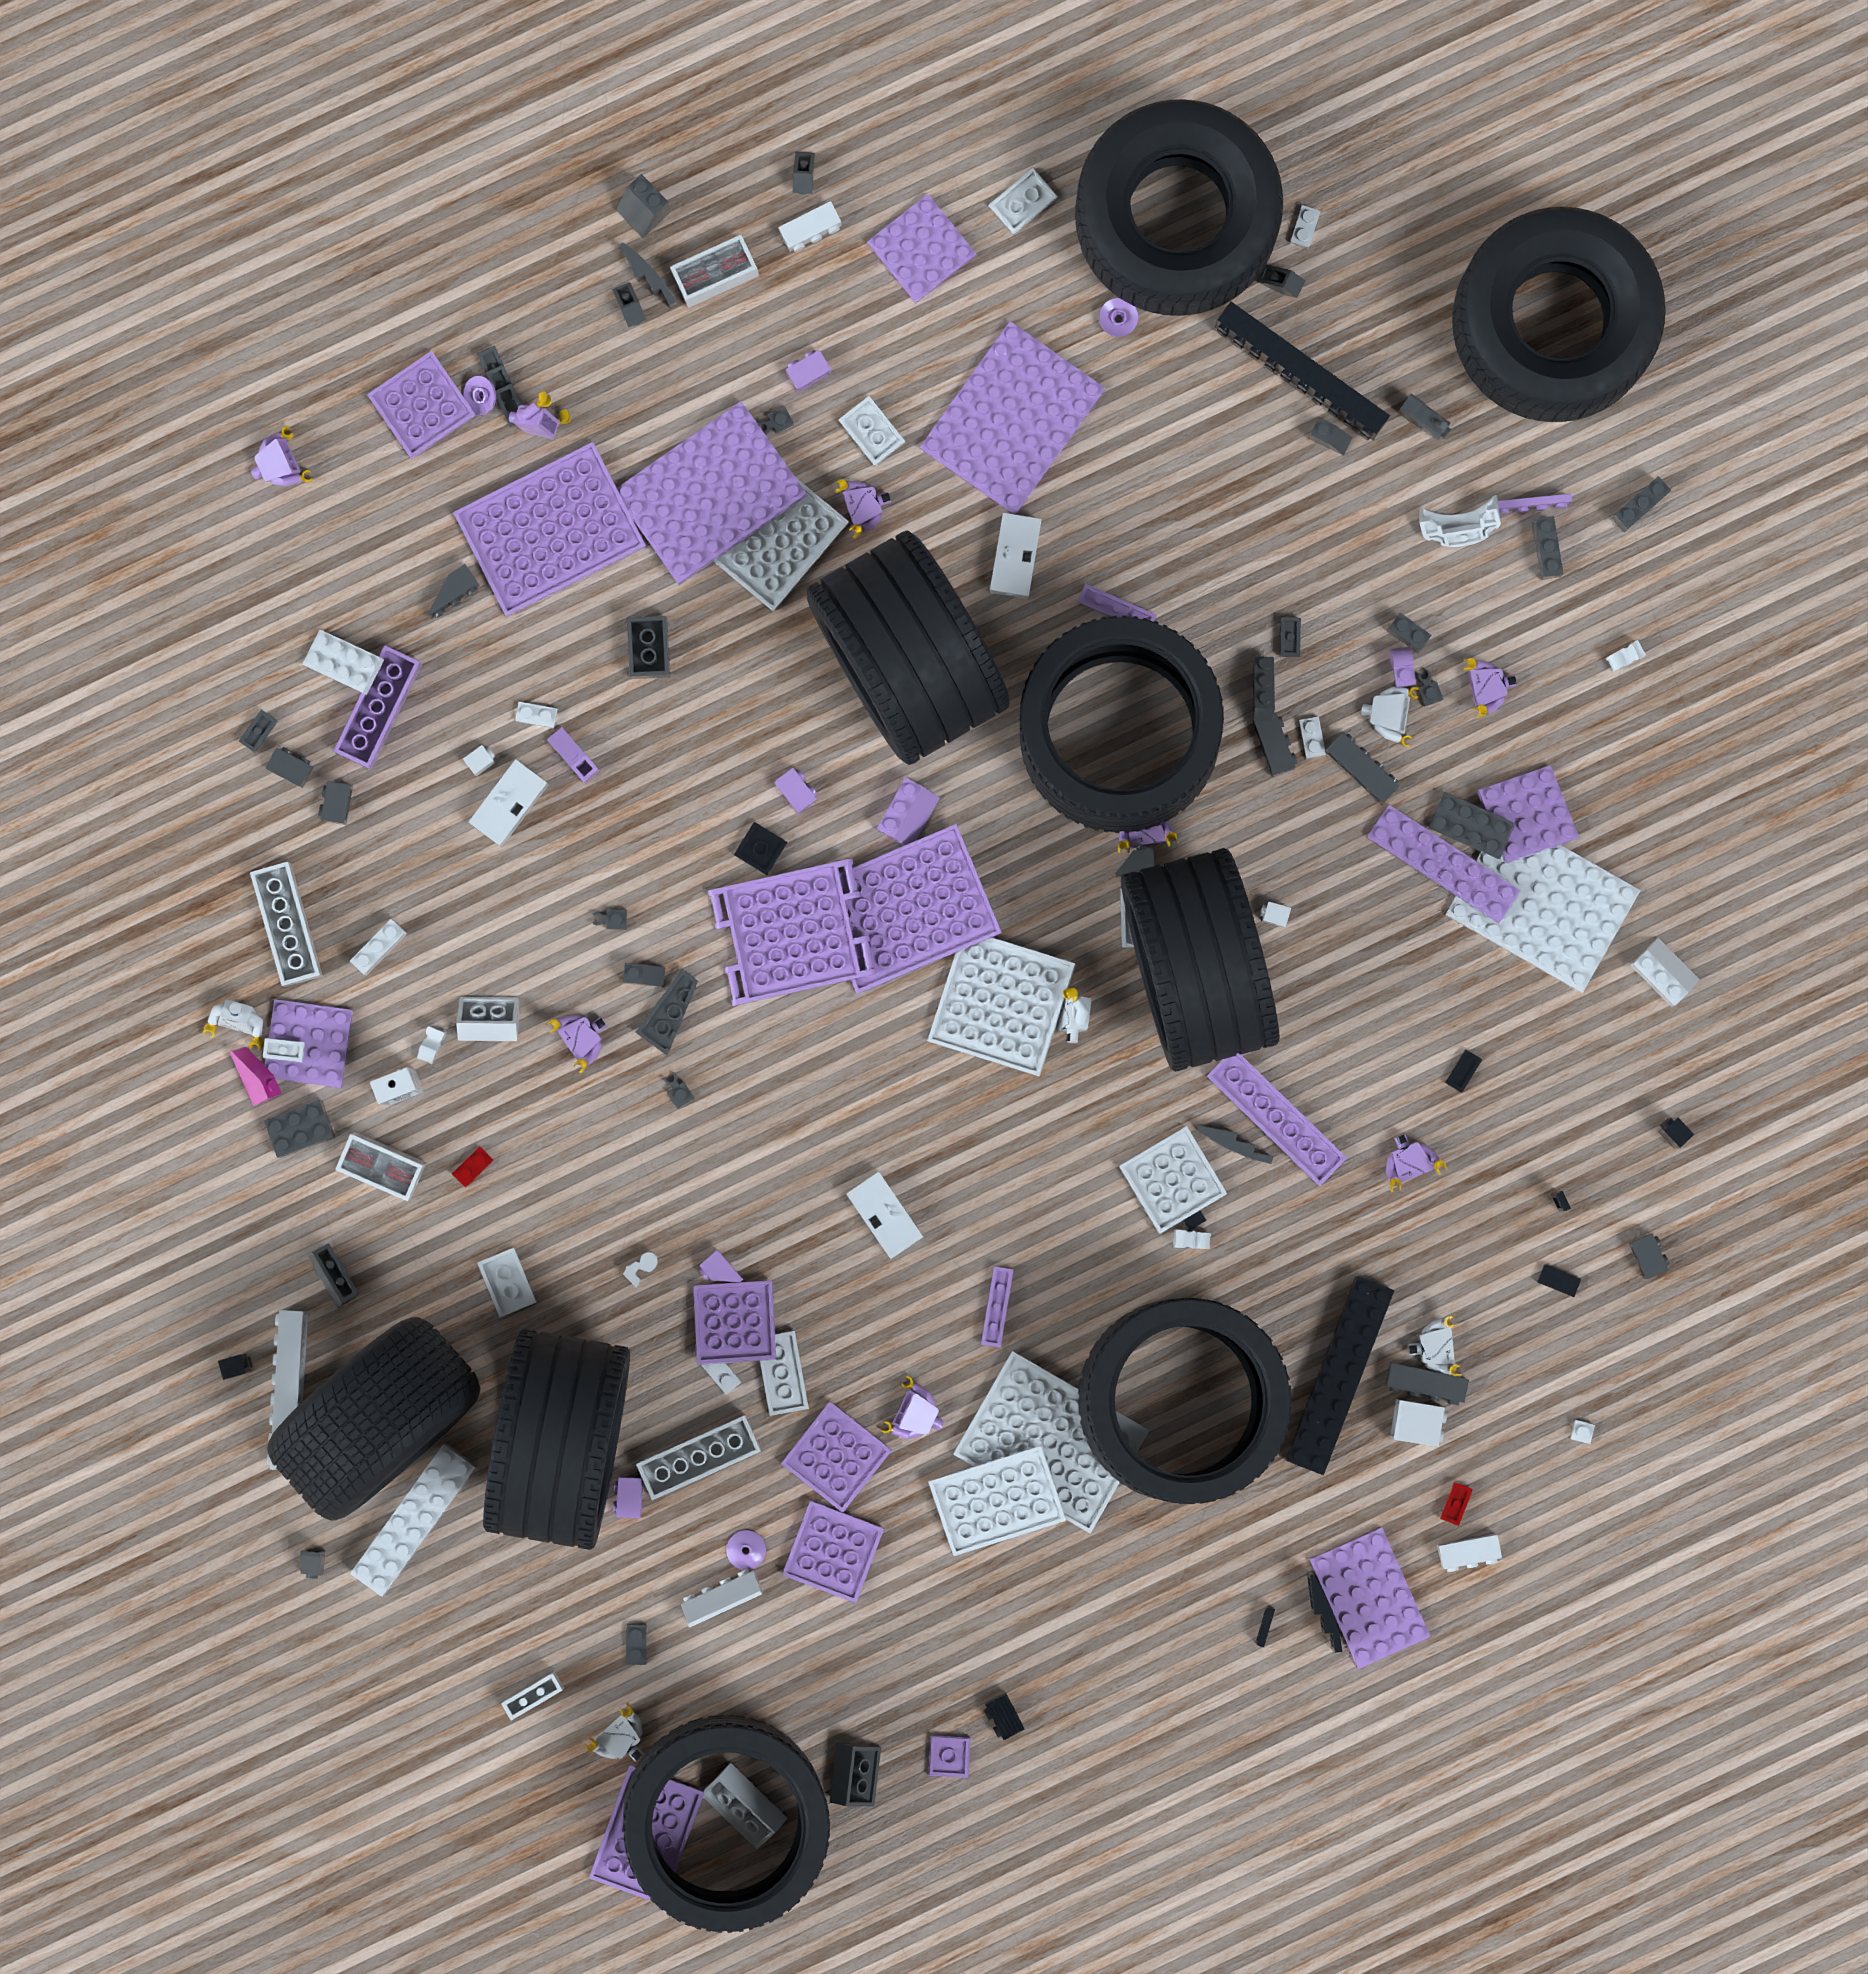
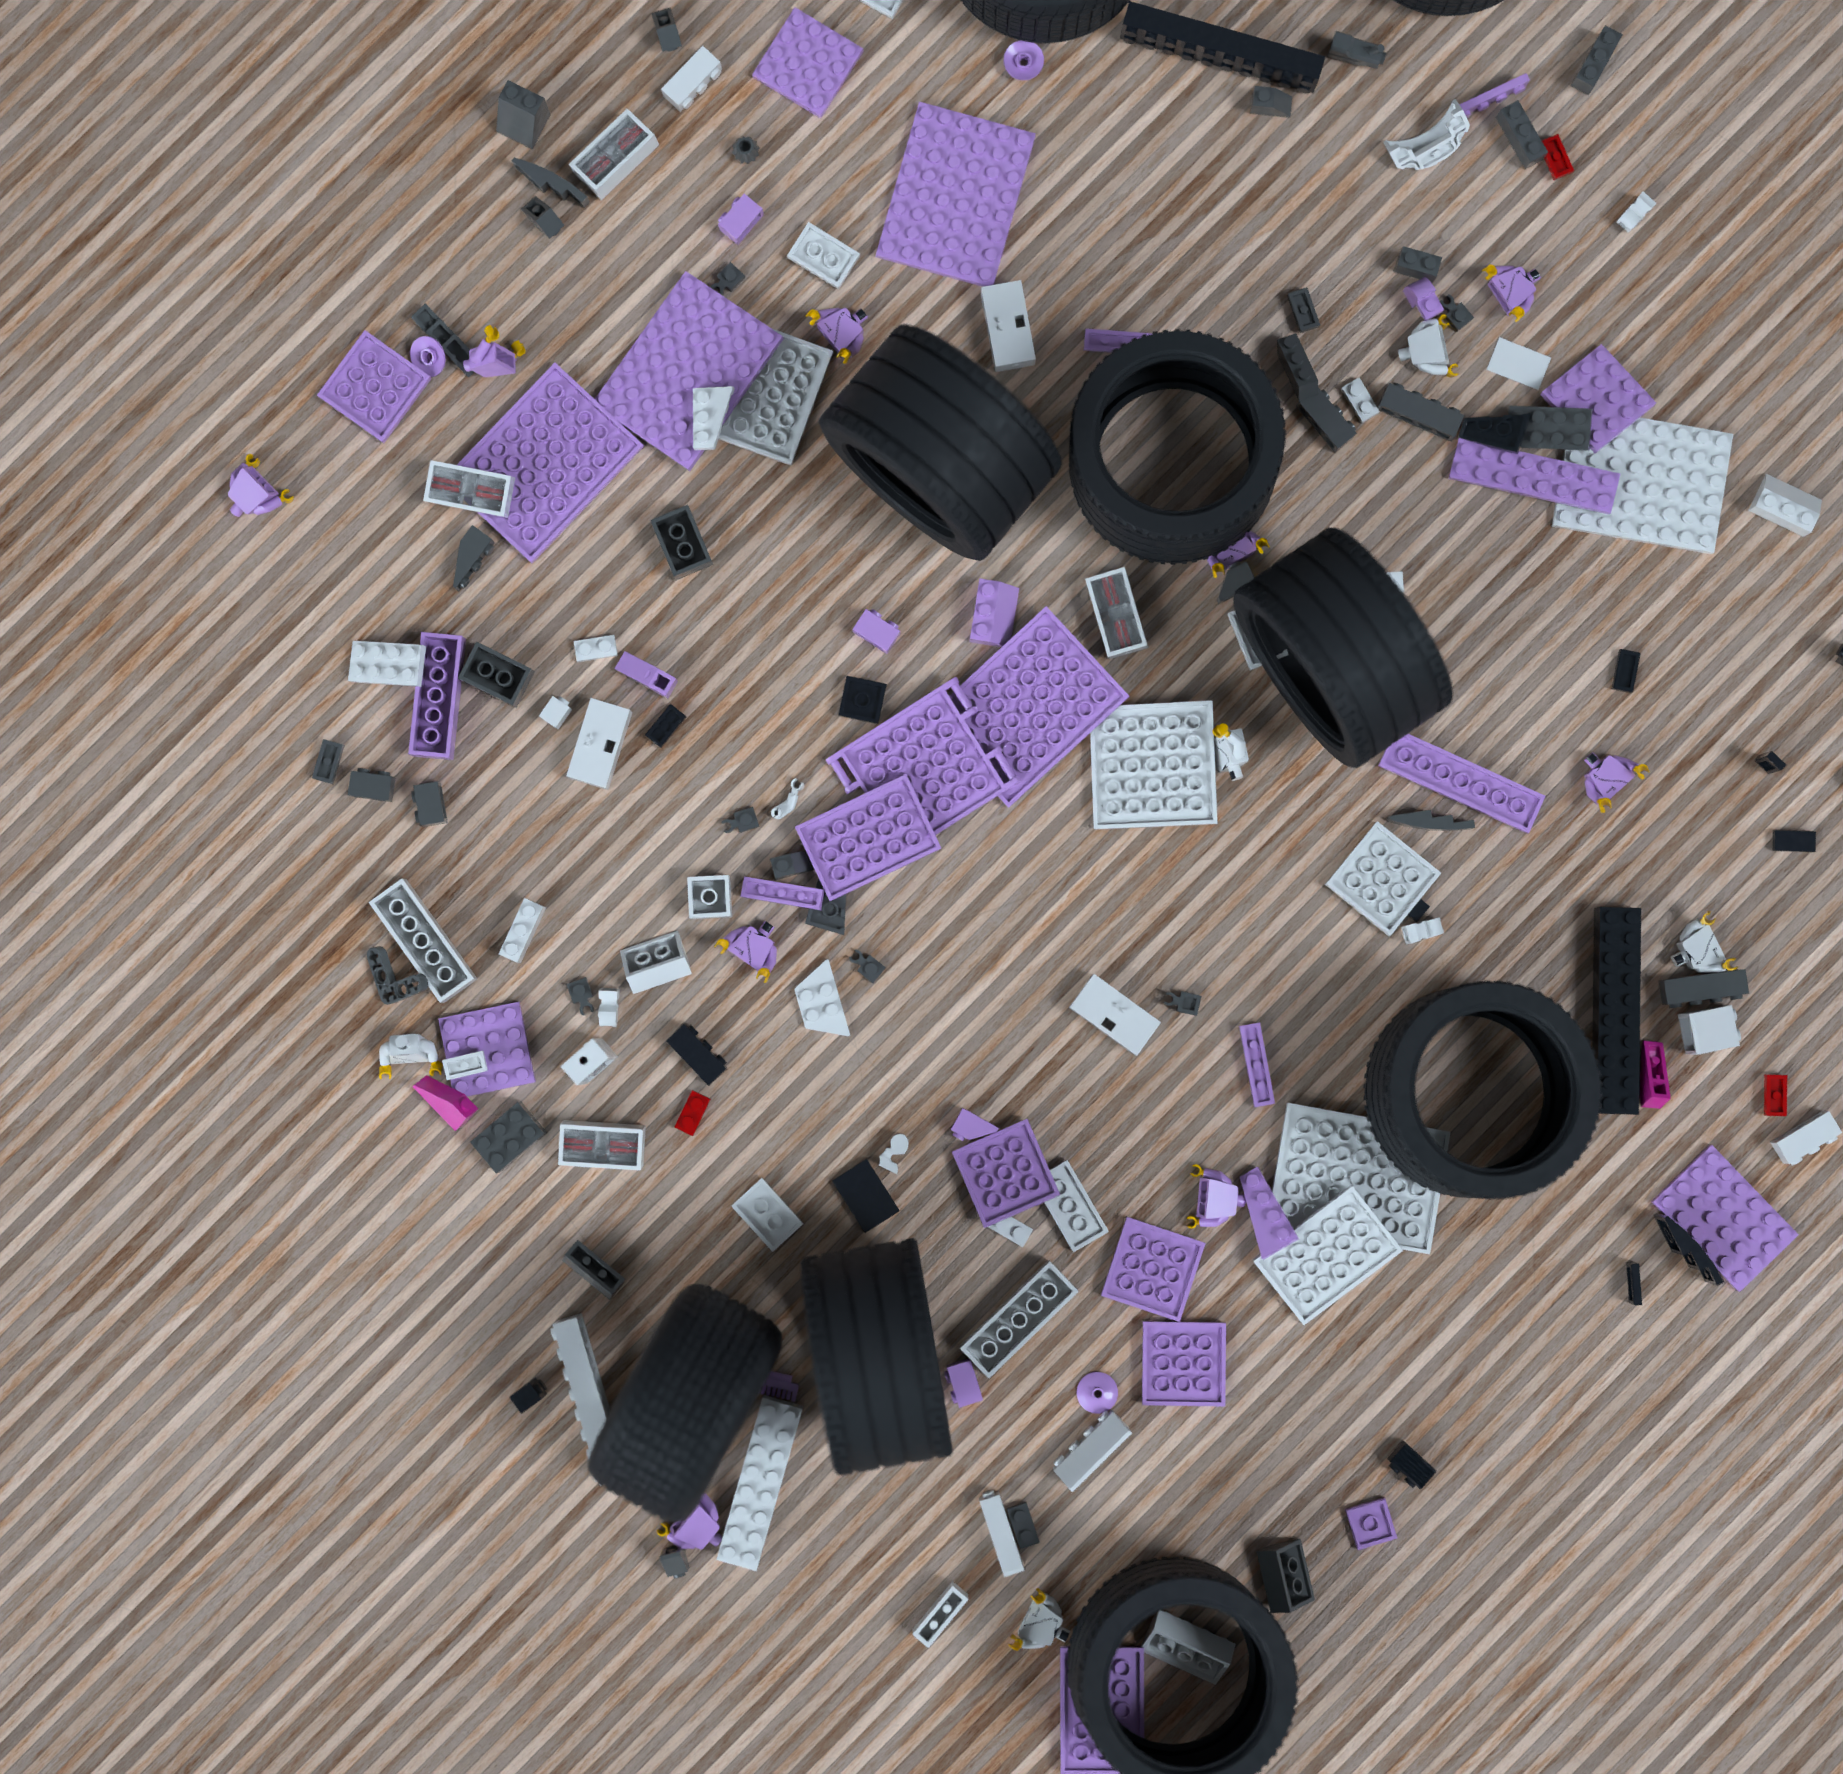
camera: 20 degrees left, 0 degrees up
(242, 953) = (390, 984): none -> dark grey beam
(341, 1537) = (695, 1529): none -> lavender torso
(411, 1022) = (581, 992): none -> dark grey plate
(438, 707) = (496, 674): none -> dark grey brick
(465, 1437) = (780, 1381): none -> lavender piece
(474, 531) = (469, 489): none -> clear brick
(496, 1115) = (697, 1054): none -> black brick
(558, 977) = (709, 897): none -> white brick
(574, 808) = (665, 725): none -> black plate
(601, 1297) = (865, 1195): none -> black tile
(613, 1643) = (1001, 1533): none -> white slope
(624, 997) = (782, 893): none -> lavender plate
(625, 1109) = (821, 1002): none -> white wing
(659, 920) = (789, 805): none -> white arm
(714, 540) = (708, 415): none -> white wing
(719, 975) = (868, 837): none -> lavender plate
(836, 309) = (745, 150): none -> dark grey piece
(954, 1228) = (1187, 1002): none -> dark grey plate
(955, 1450) = (1267, 1216): none -> lavender wing
(1019, 852) = (1116, 613): none -> clear brick
(1351, 1446) = (1653, 1076): none -> dark pink slope
(1424, 812) = (1496, 432): none -> black wing
(1469, 755) = (1518, 363): none -> white sticker
(1572, 579) = (1557, 158): none -> red plate

